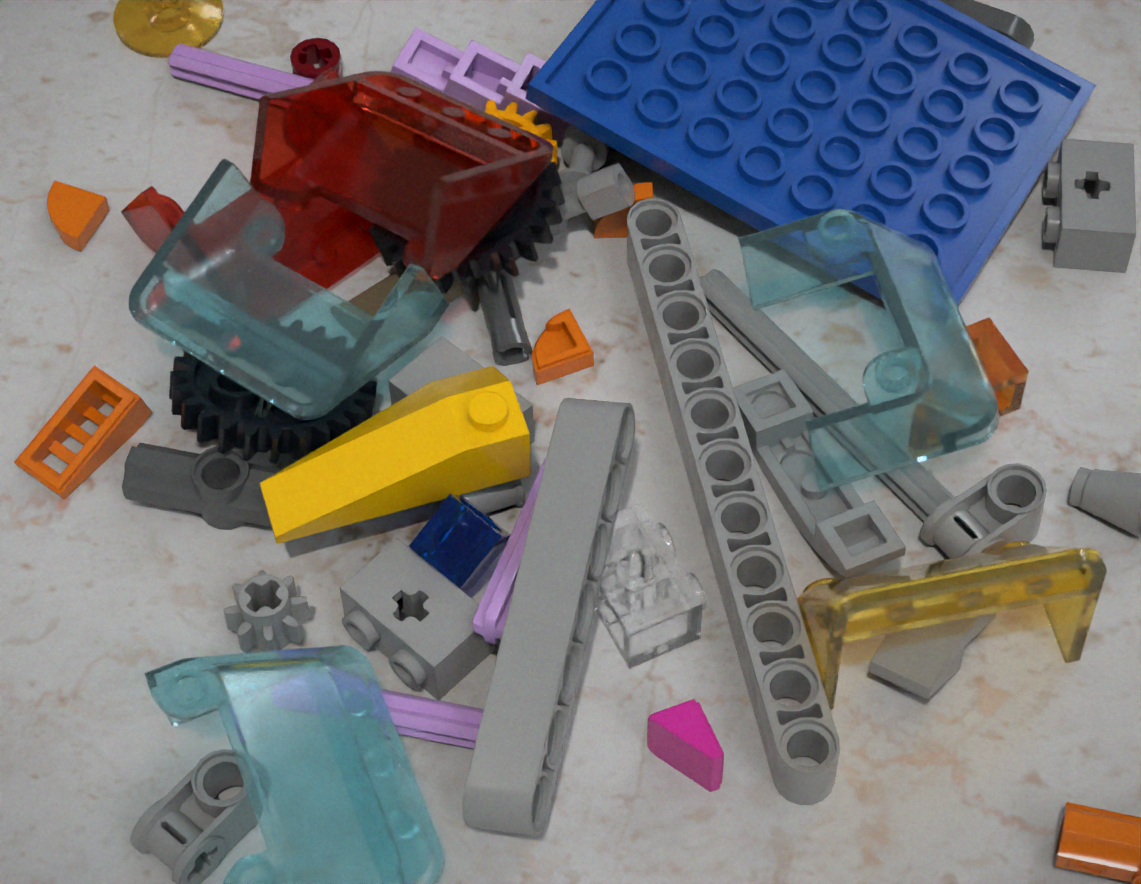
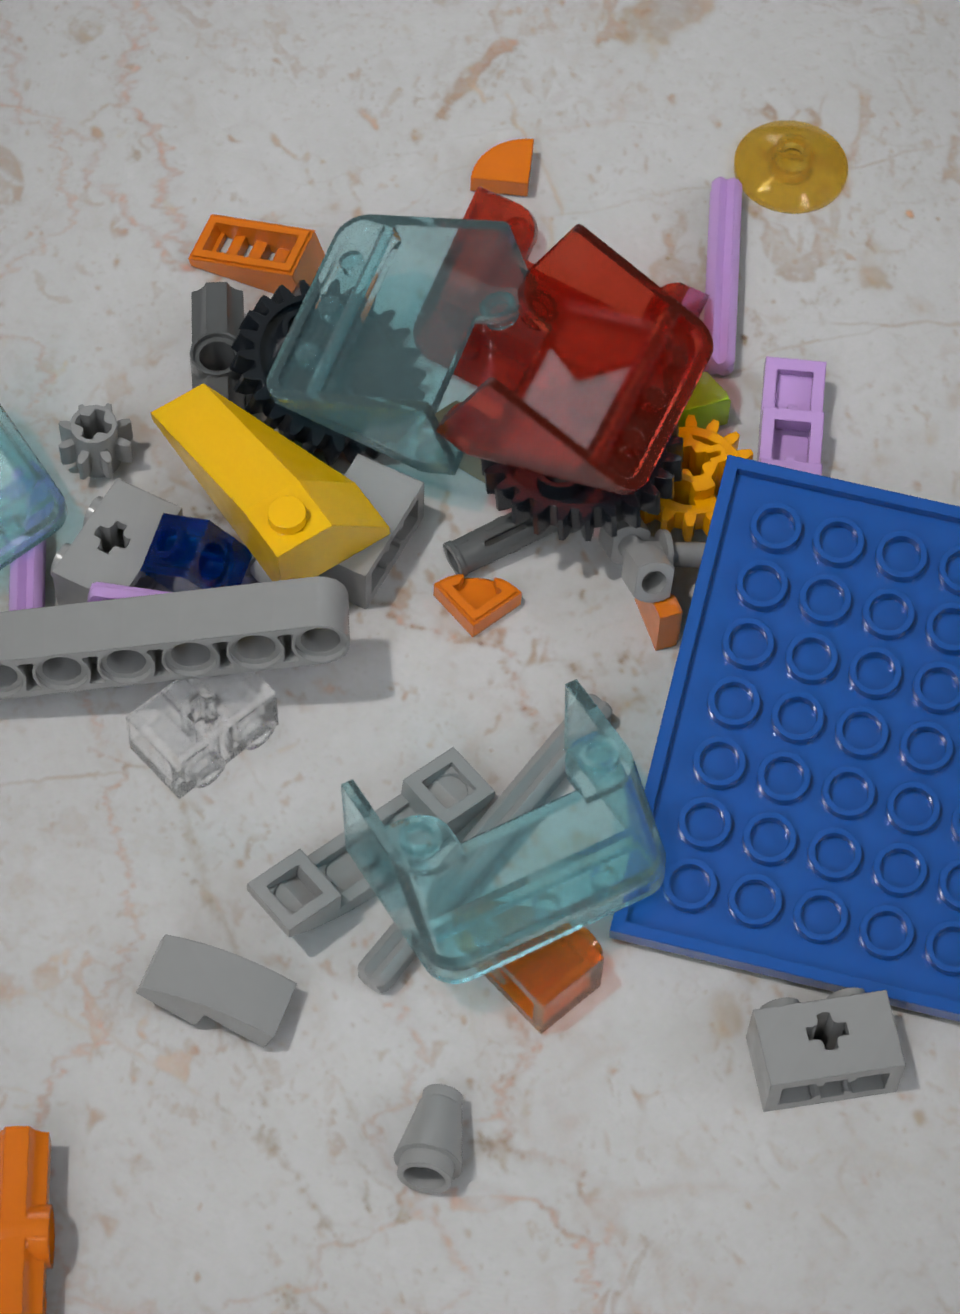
camera: 70 degrees right, 5 degrees up
(312, 52) = (764, 286): dark red bush -> none
(687, 743) = (41, 804): dark pink slope -> none
(704, 398) = (310, 772): light grey beam -> none
(951, 590) = (227, 976): clear yellow windscreen -> none
(981, 520) = (354, 1006): light grey piece -> none

